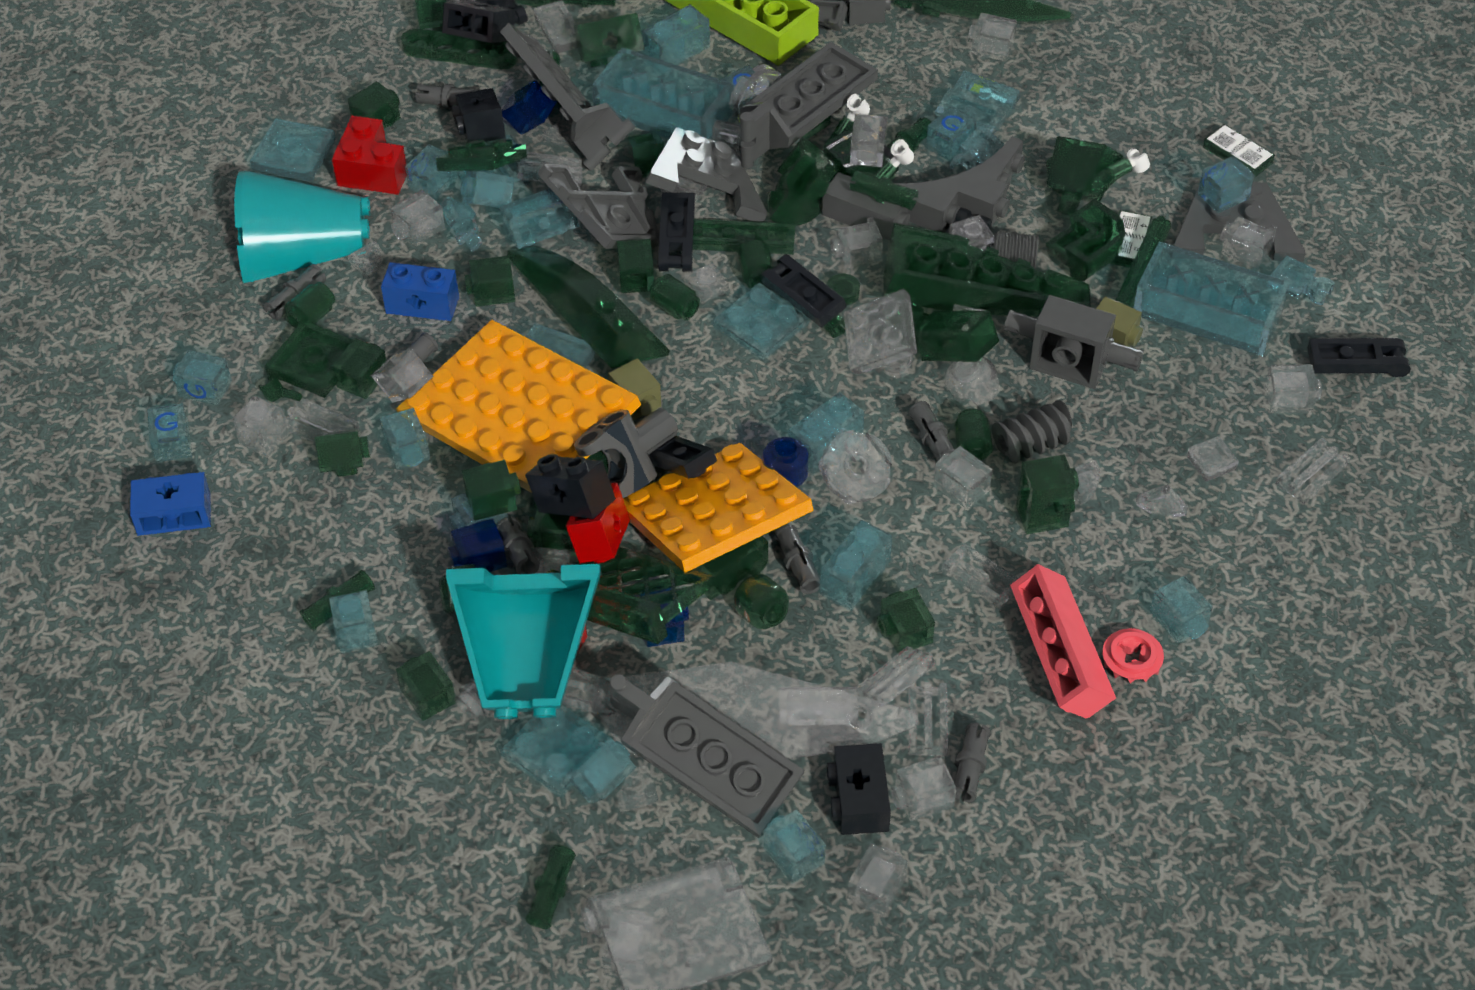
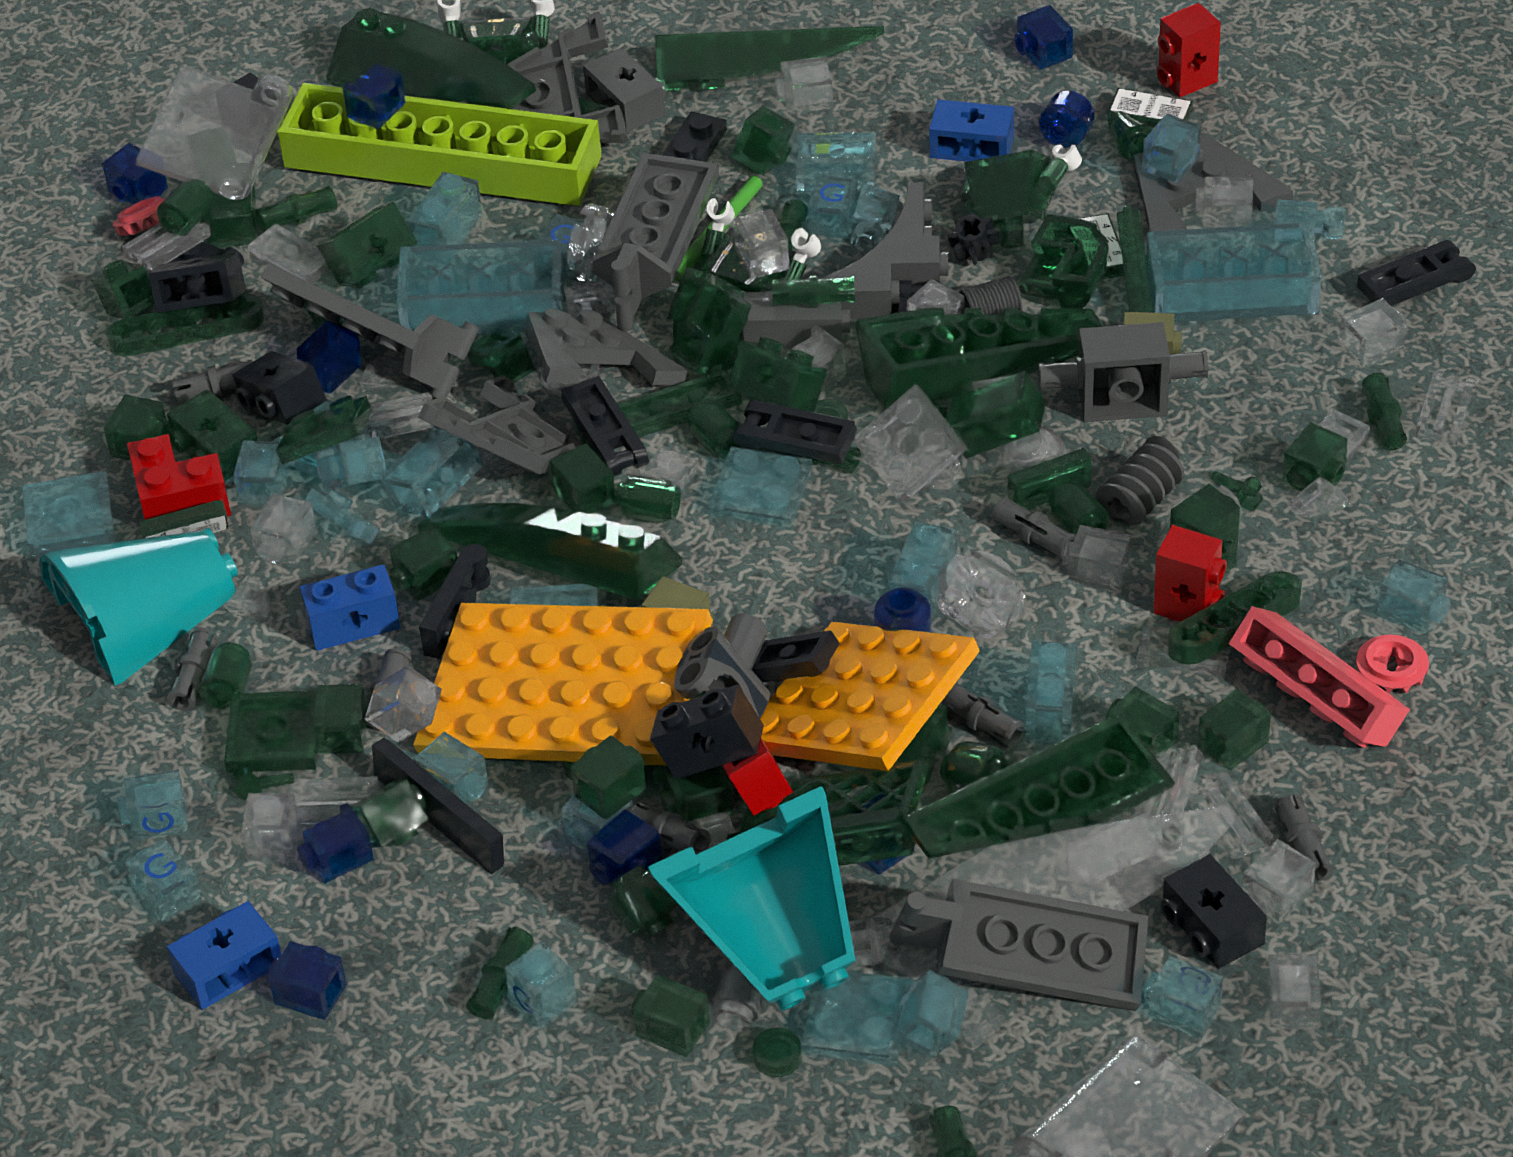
camera: 25 degrees left, 5 degrees down
(209, 545) = (307, 980): none -> clear blue brick
(293, 458) = (336, 845): none -> clear blue brick
(374, 188) = (187, 520): none -> clear green tile
(380, 460) = (443, 807): none -> black tile
(416, 127) = (209, 427): none -> clear green brick
(482, 747) = (777, 1052): none -> clear green tile
(502, 308) = (461, 586): none -> black plate
(787, 642) = (1046, 793): none -> clear green wedge
(818, 244) = (777, 376): none -> clear green brick
(878, 110) = (738, 203): none -> bright green bar
(889, 49) = (697, 137): none -> black plate
(931, 65) = (763, 141): none -> clear green brick
(951, 400) = (1036, 483): none -> clear green tile
(974, 653) = (1234, 729): none -> clear green brick
(991, 572) = (1197, 640): none -> clear green beam
(1012, 520) = (1187, 573): none -> red brick
(1036, 196) = (973, 238): none -> black gear
(1090, 115) = (970, 130): none -> blue brick
(1112, 473) = (1246, 492): none -> clear green hand
(1168, 133) = (1068, 116): none -> clear blue head
(1179, 467) = (1314, 455): none -> clear green brick
(1192, 65) = (1044, 37): none -> clear blue brick
(1207, 156) = (1128, 134): none -> clear green cone
(1260, 454) = (1384, 411): none -> clear green pin
(1290, 114) = (1188, 50): none -> red brick

